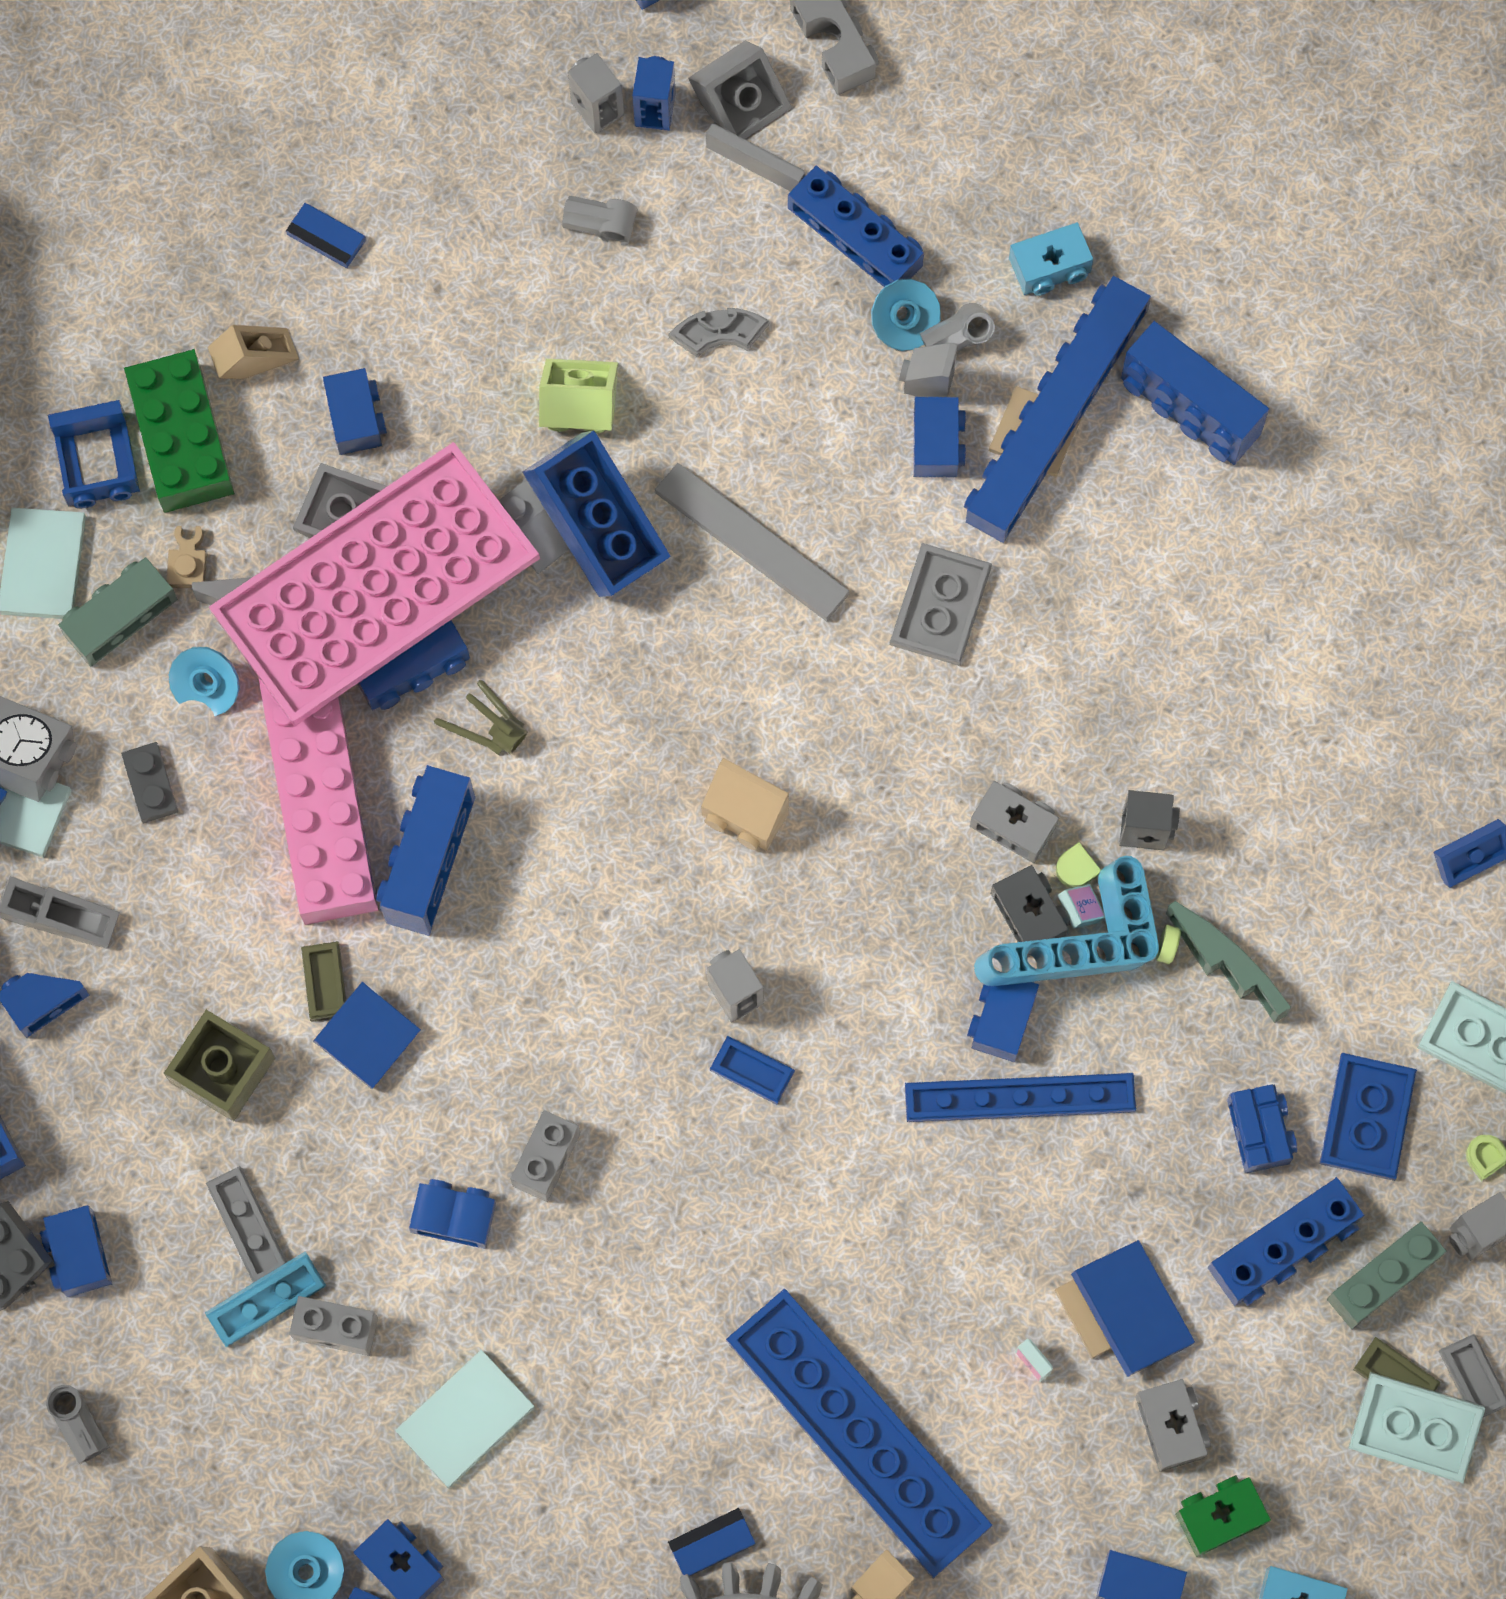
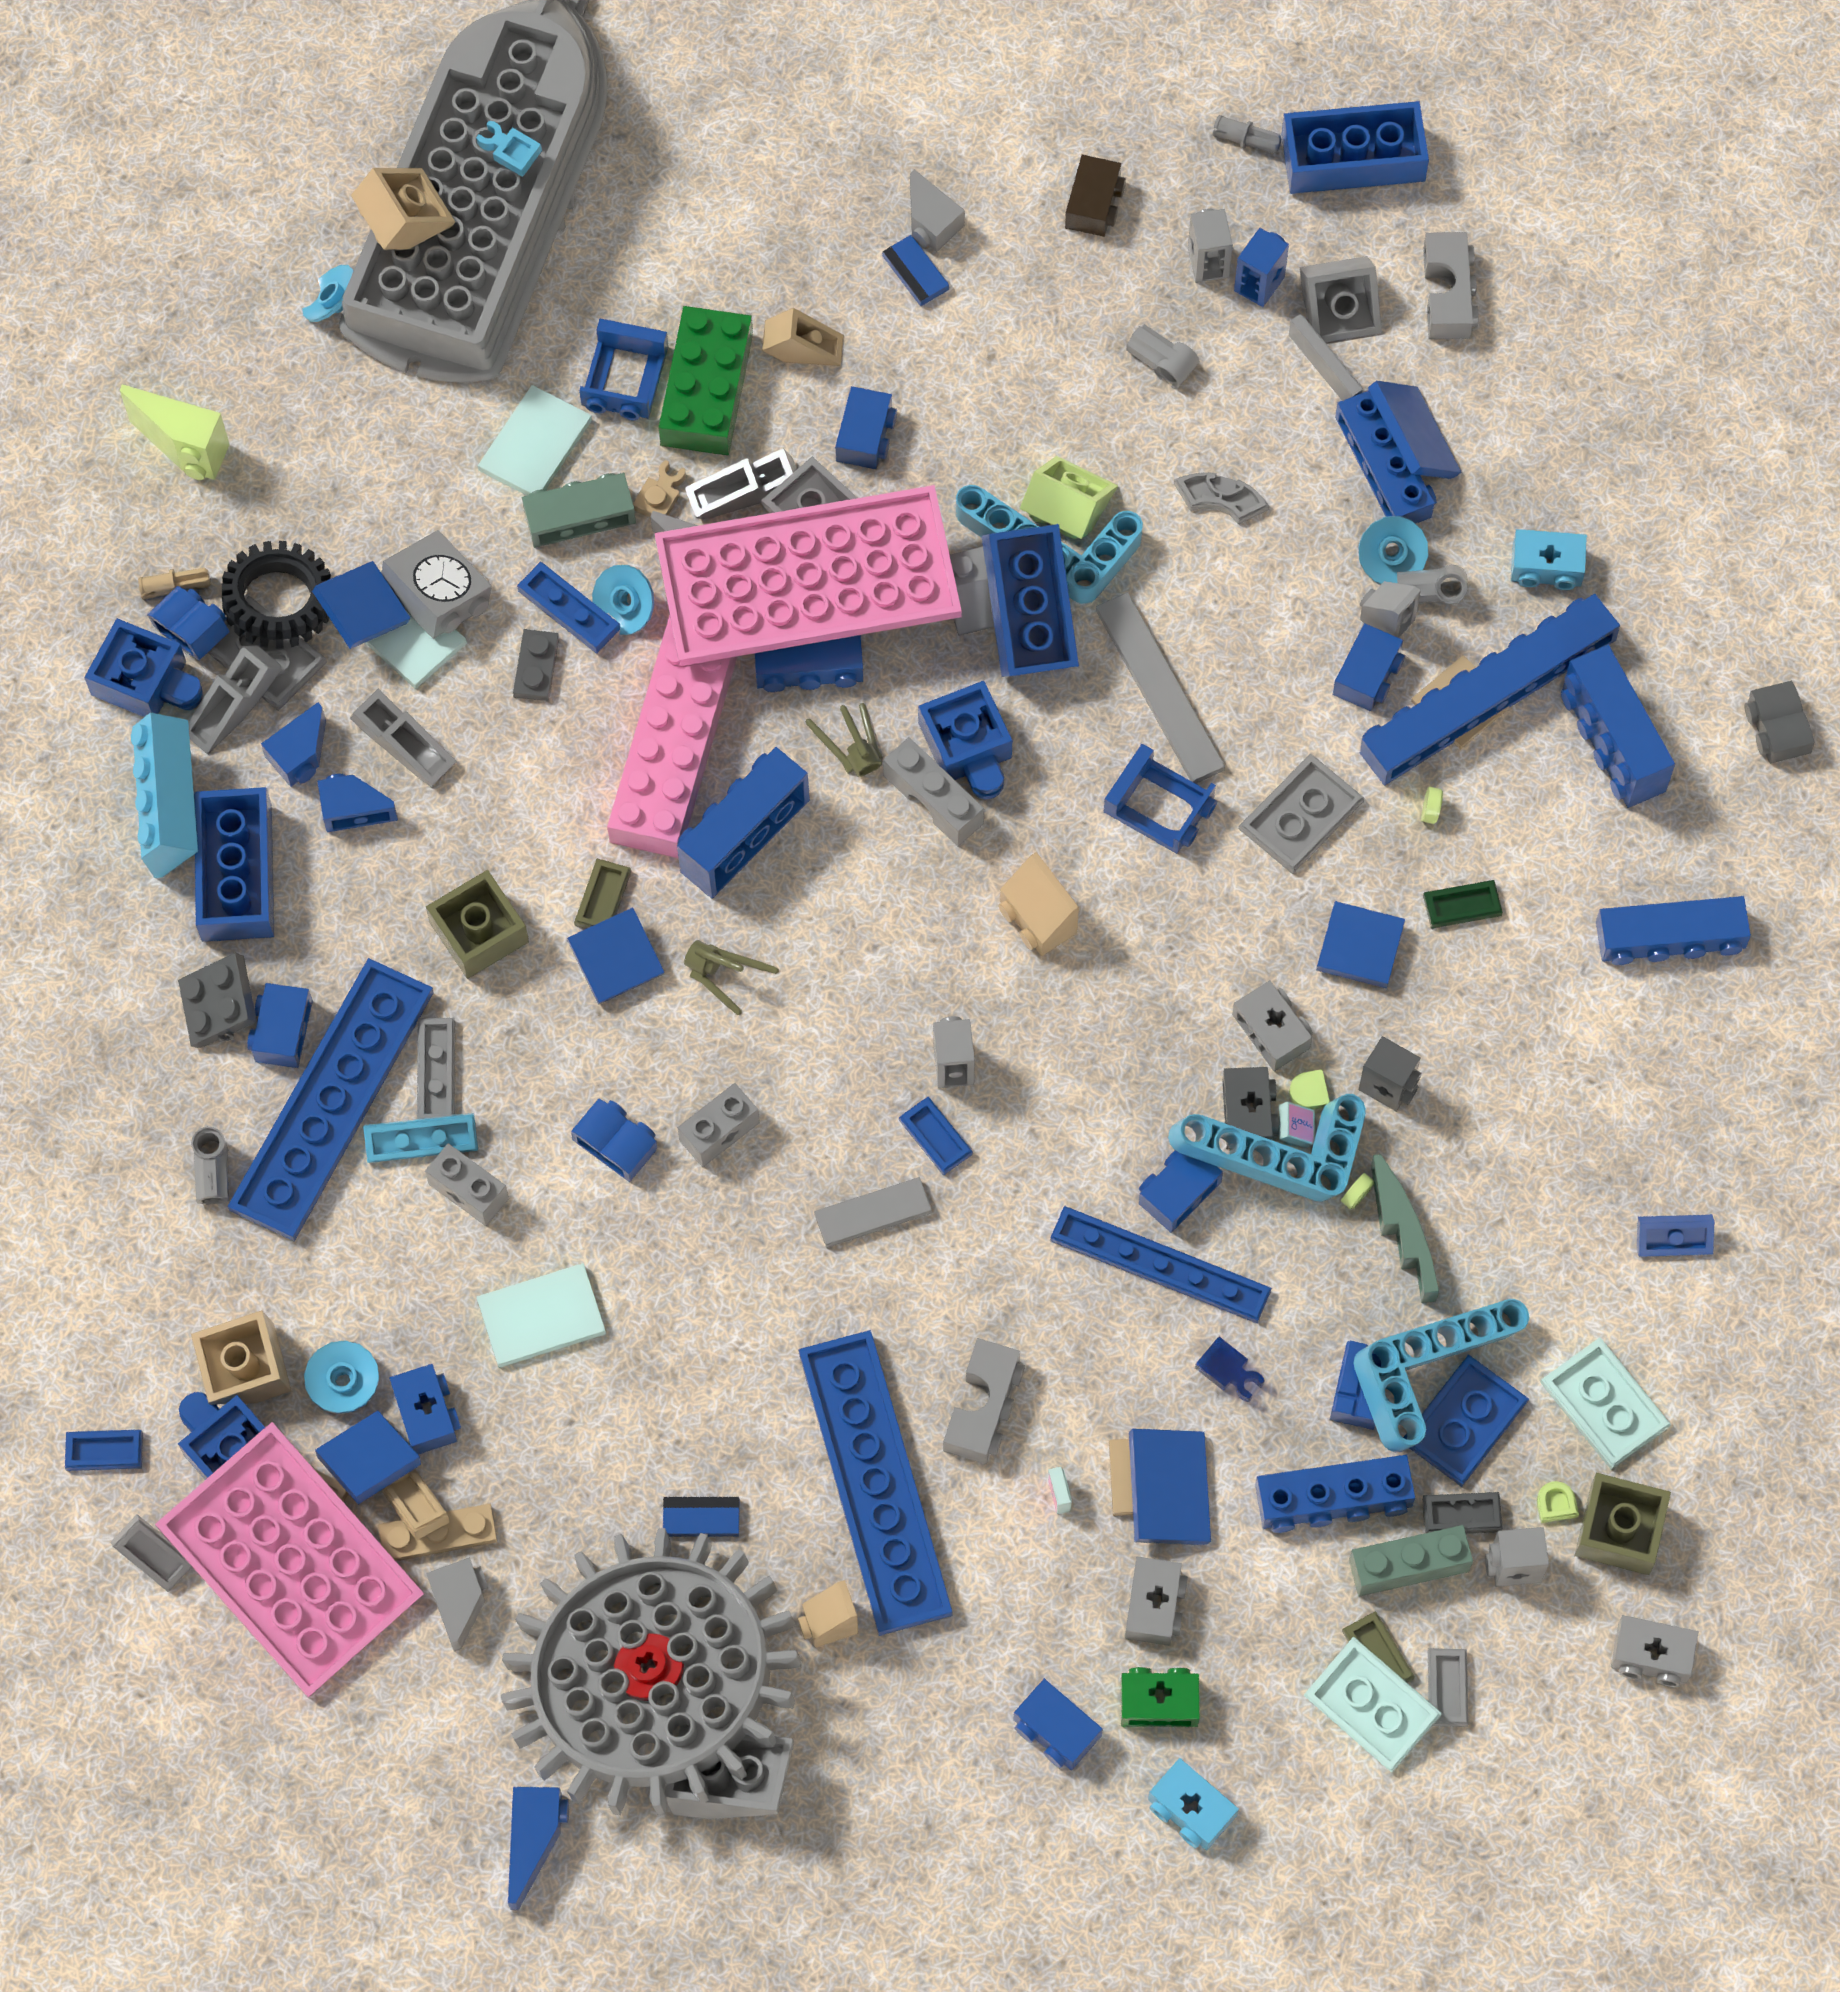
camera: 25 degrees right, 5 degrees down
(154, 712) = (568, 607): none -> blue plate
(160, 1302) = (330, 1099): none -> blue plate
(262, 518) = (739, 485): none -> light grey slope
(316, 173) = (933, 214): none -> light grey slope
(454, 997) = (708, 958): none -> olive plant
(460, 90) = (1093, 196): none -> dark brown brick
(599, 672) = (968, 737): none -> blue brick
(610, 743) = (920, 776): none -> light grey arch
(627, 456) = (1077, 566): none -> medium azure beam
(729, 1172) = (872, 1212): none -> light grey tile
(839, 632) = (1144, 766): none -> blue panel
(870, 190) = (1414, 430): none -> blue tile
(920, 1273) = (975, 1432): none -> light grey arch
(1057, 706) = (1360, 944): none -> blue tile
(1058, 543) = (1432, 805): none -> yellowish green tile
(1126, 1169) = (1225, 1366): none -> clear blue plate
(1129, 624) = (1462, 904): none -> dark green tile
(1308, 1069) = (1426, 1350): none -> medium azure beam
(1333, 563) = (1673, 929): none -> blue brick
(1334, 323) = (1780, 722): none -> dark grey brick
(1409, 1206) = (1473, 1510): none -> dark grey plate

